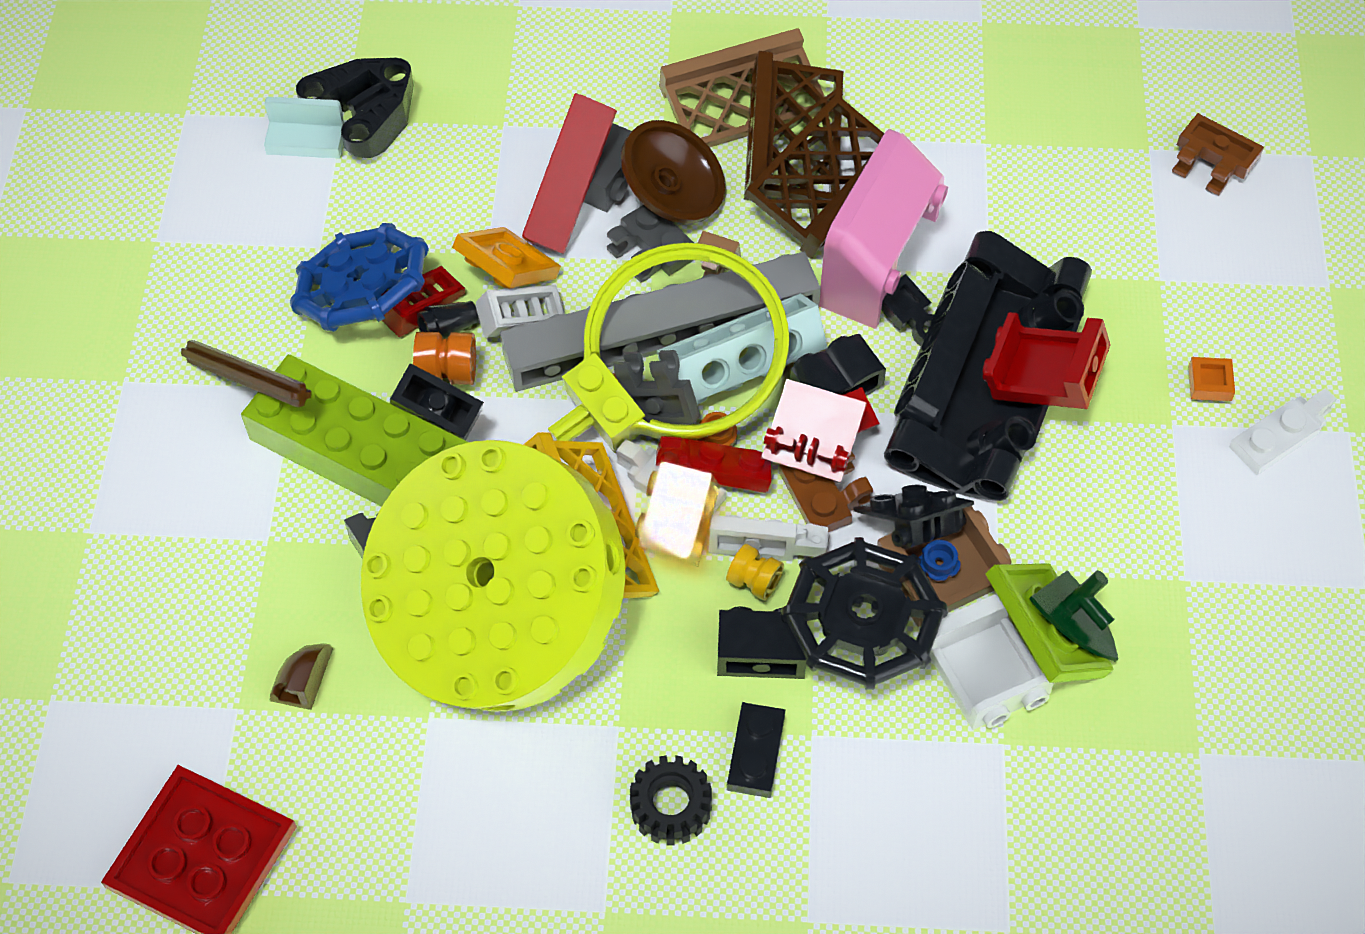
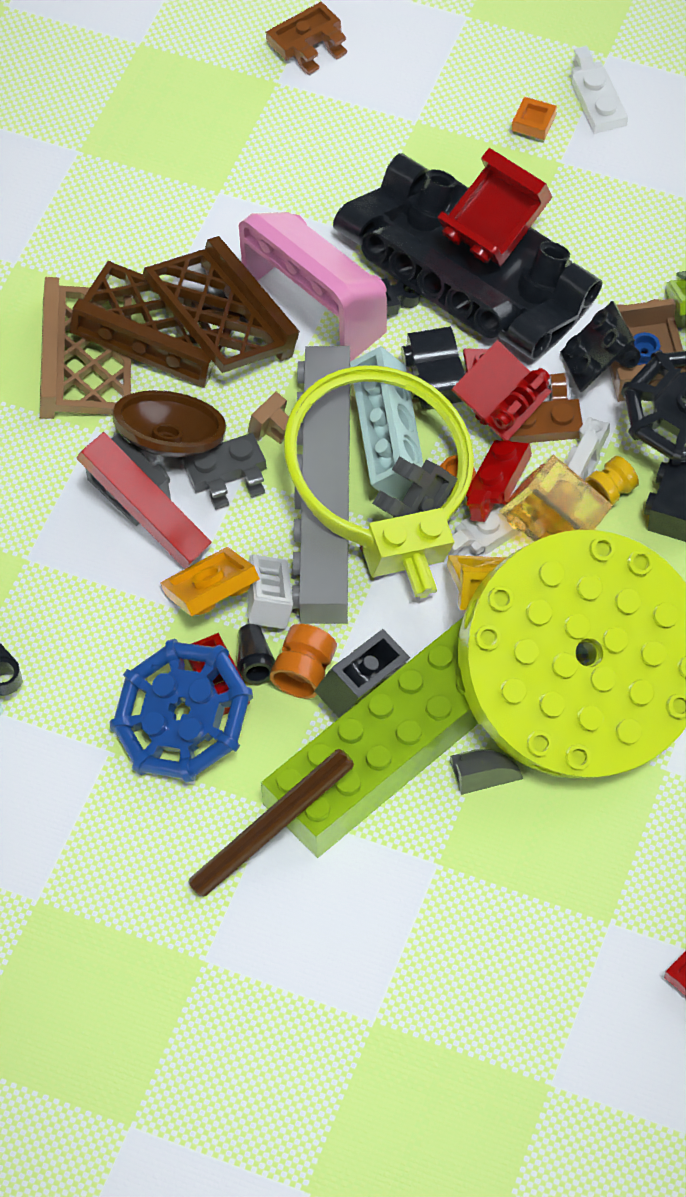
camera: 70 degrees left, 0 degrees up
(301, 676) = (598, 857): brick -> none

